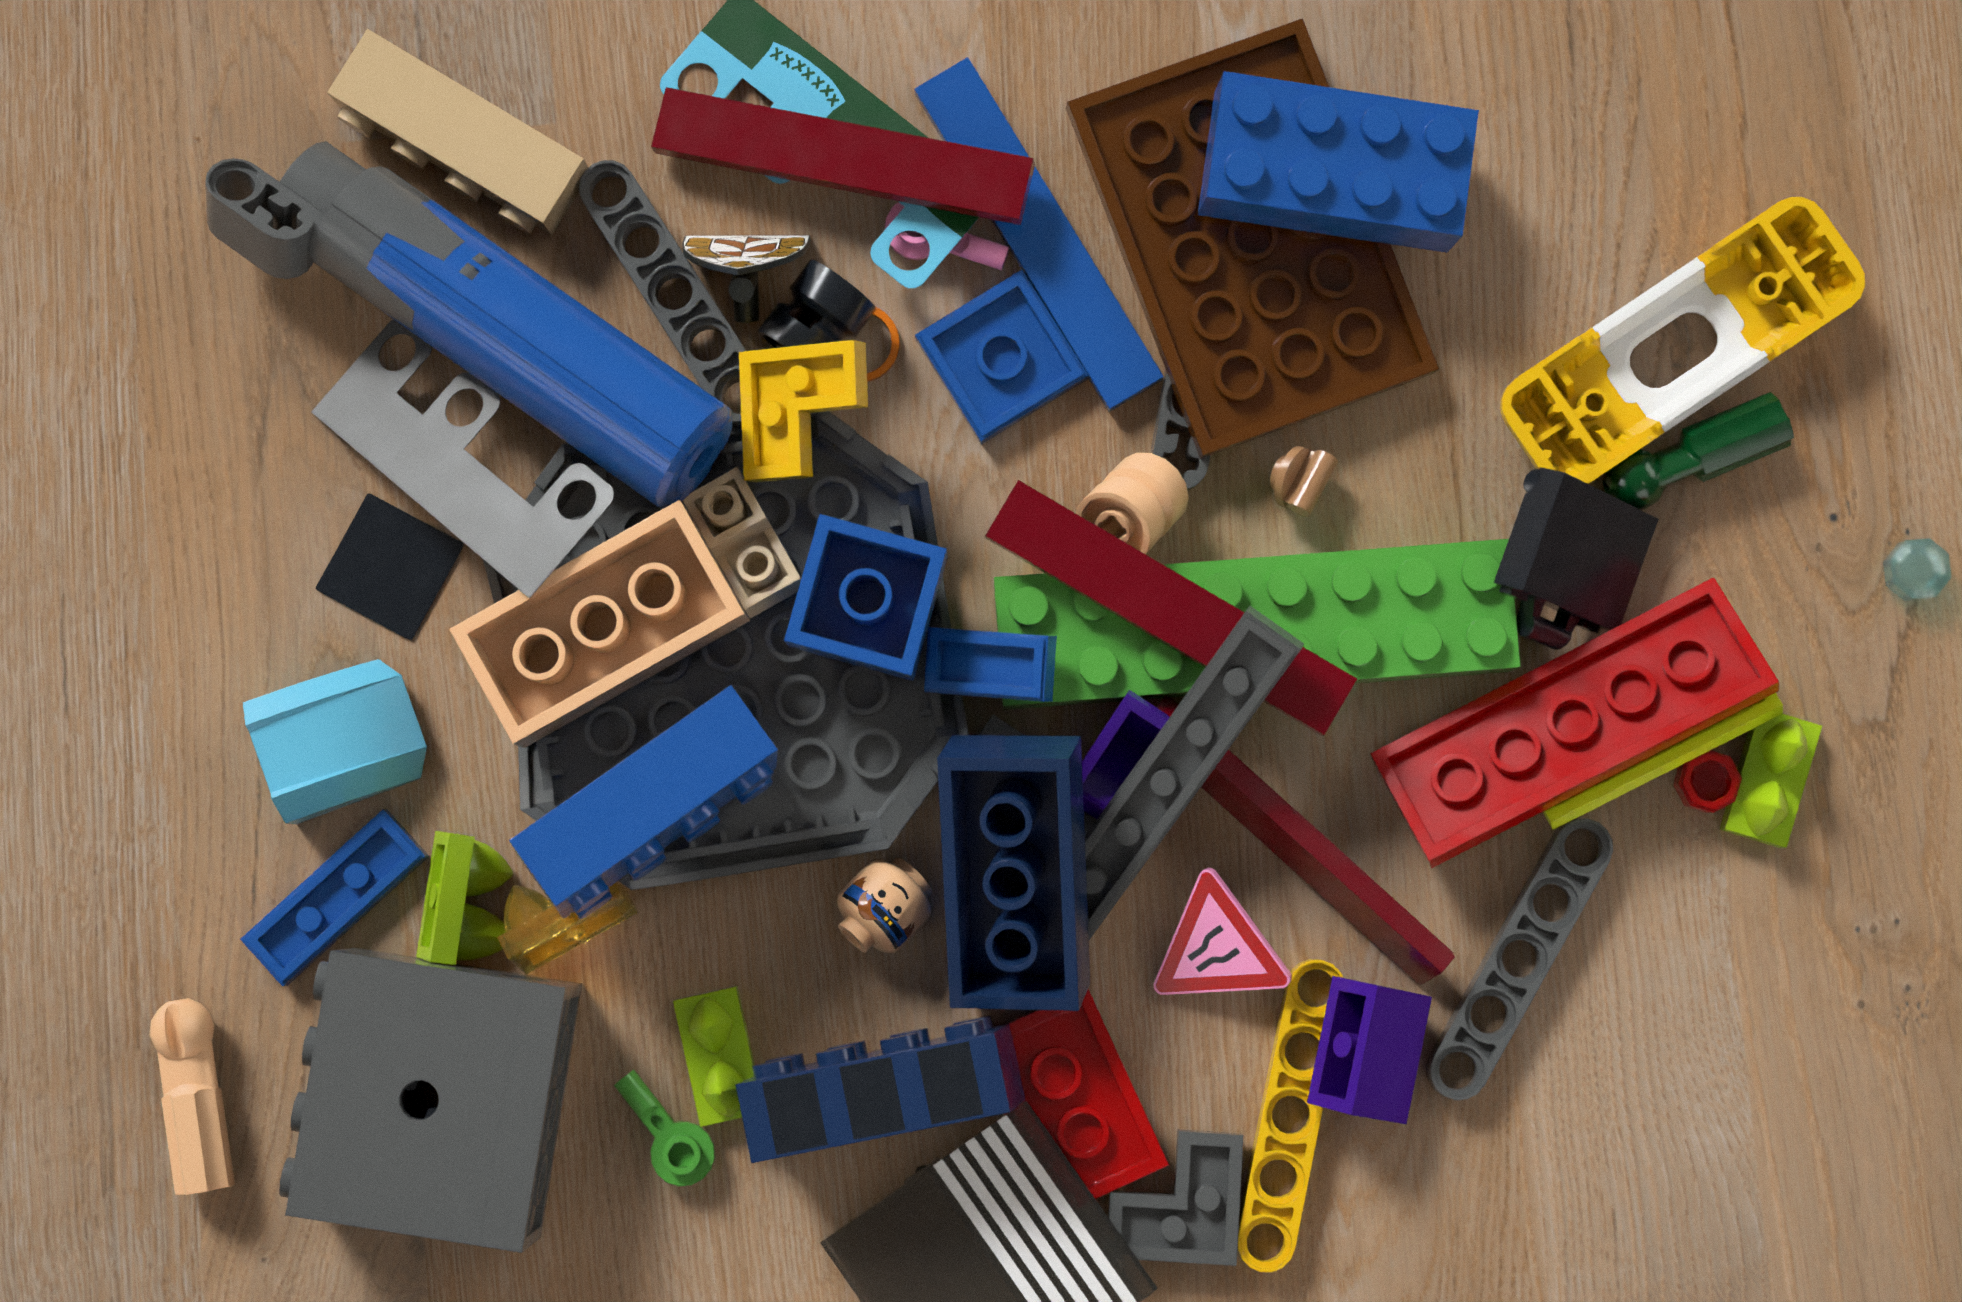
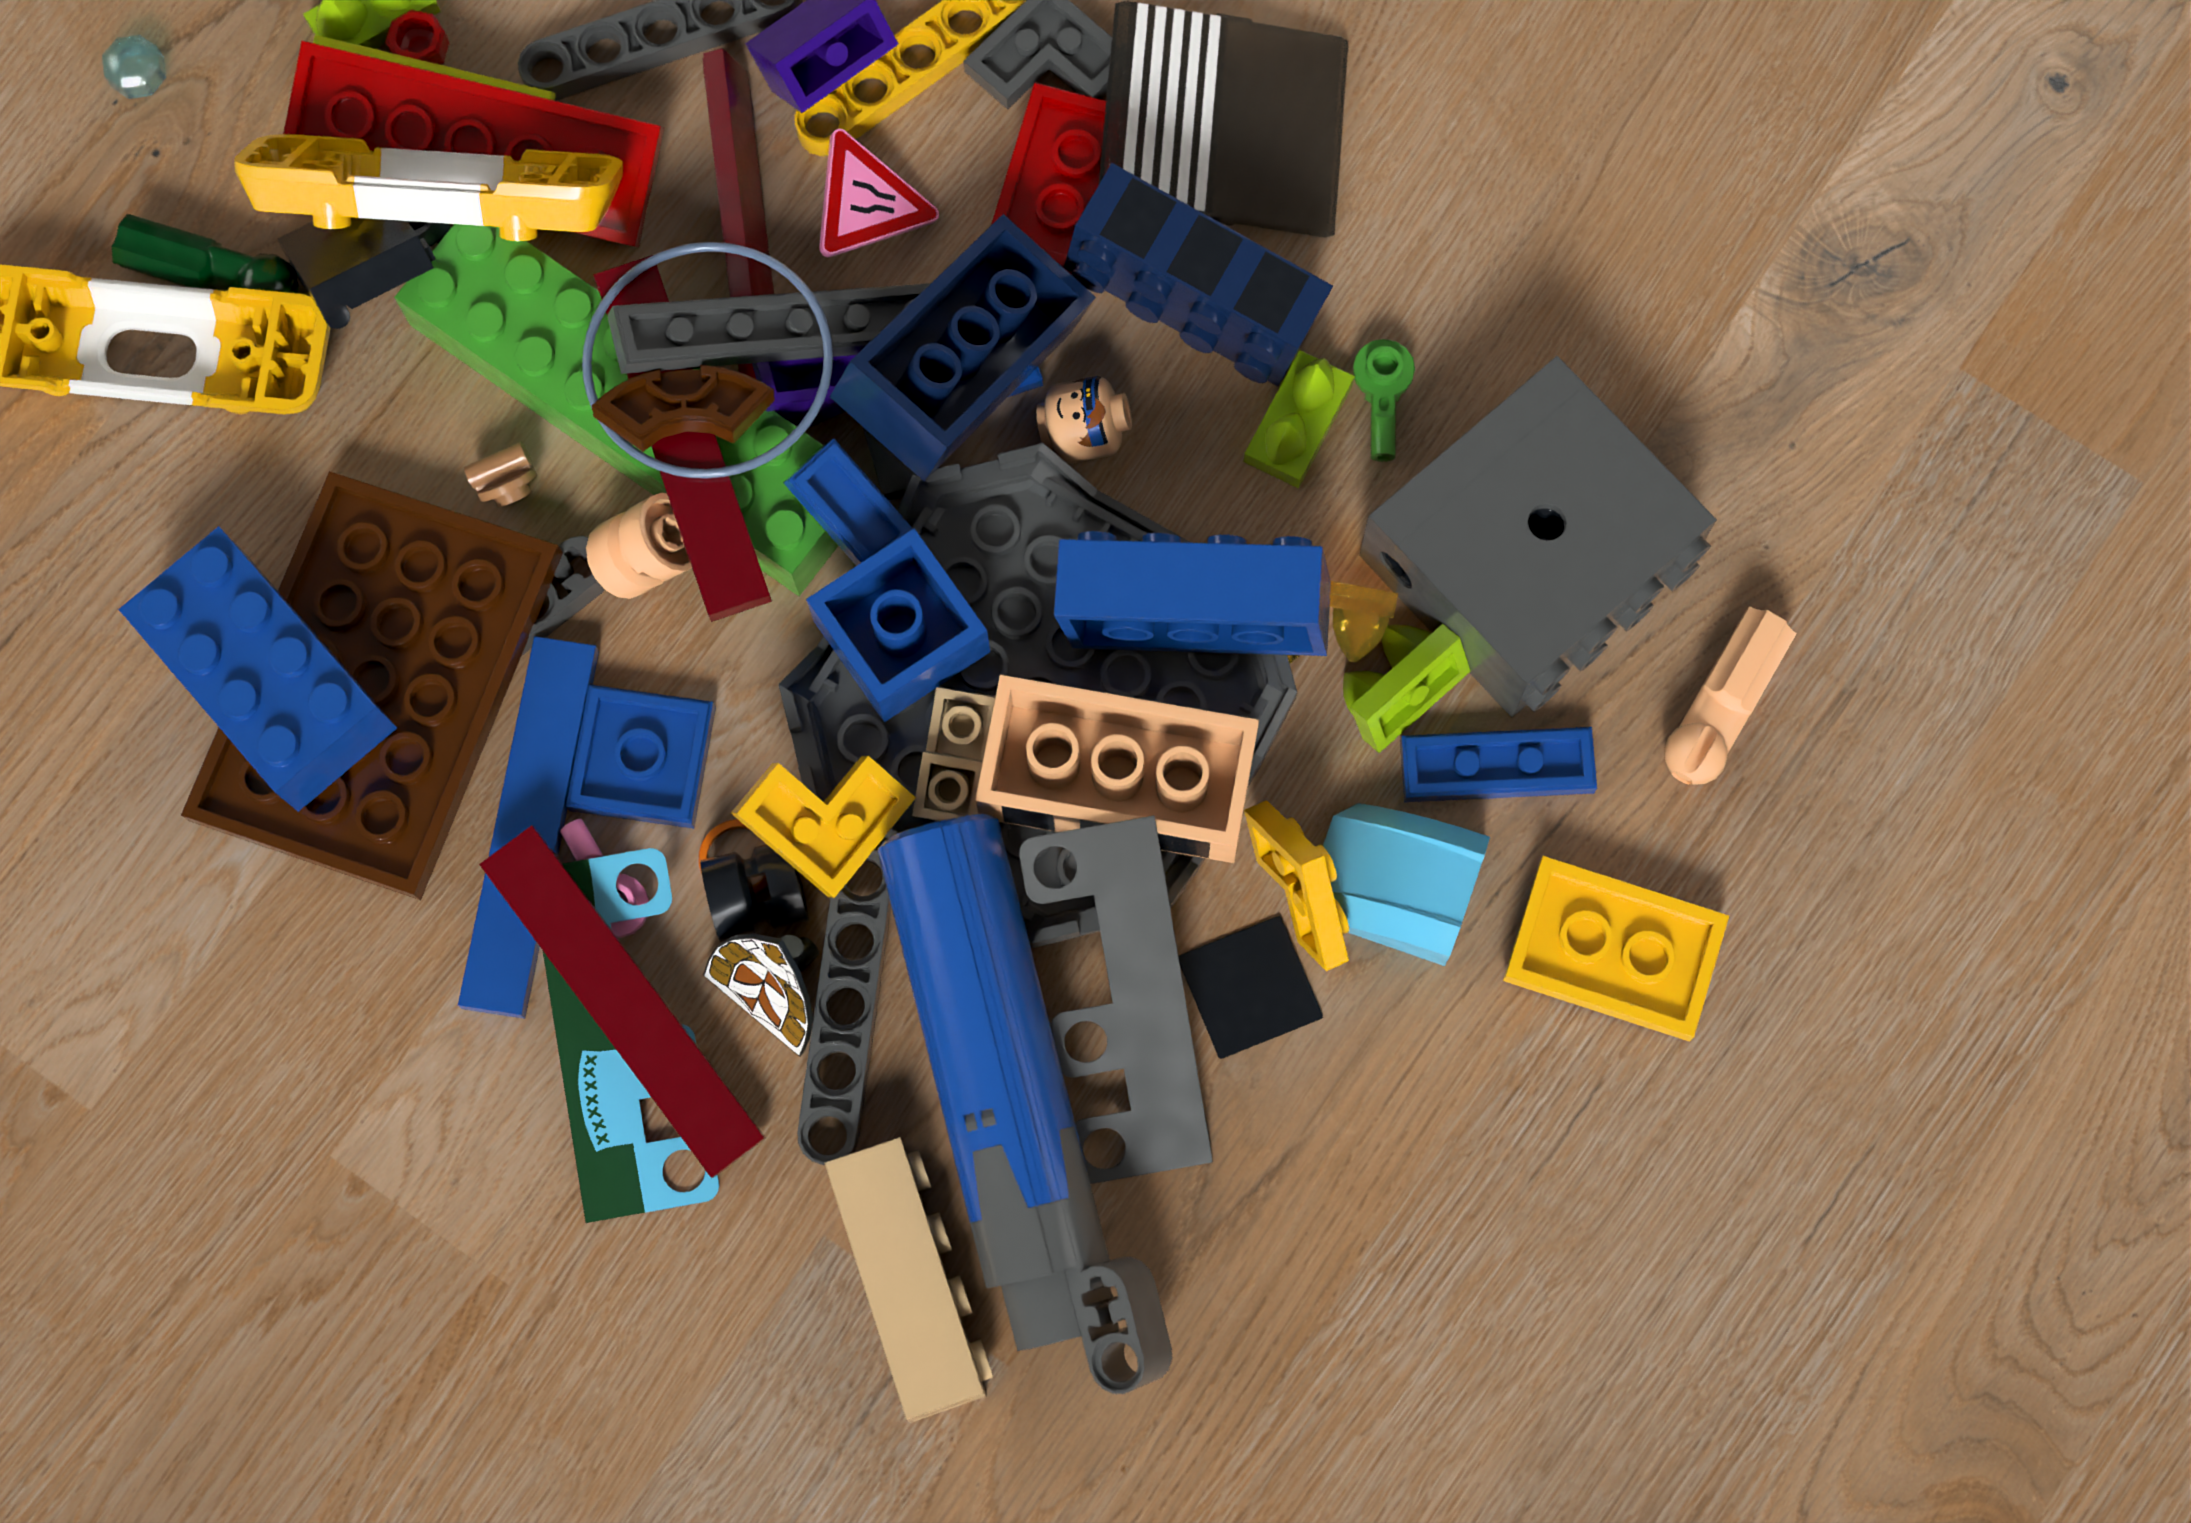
camera: 140 degrees left, 10 degrees down
(126, 821) = (1616, 948): none -> yellow plate
(396, 668) = (1306, 877): none -> yellow plate
(1186, 629) = (683, 401): none -> reddish brown tile
(1187, 806) = (711, 247): none -> sand blue piece
(1633, 597) = (346, 180): none -> yellow piece

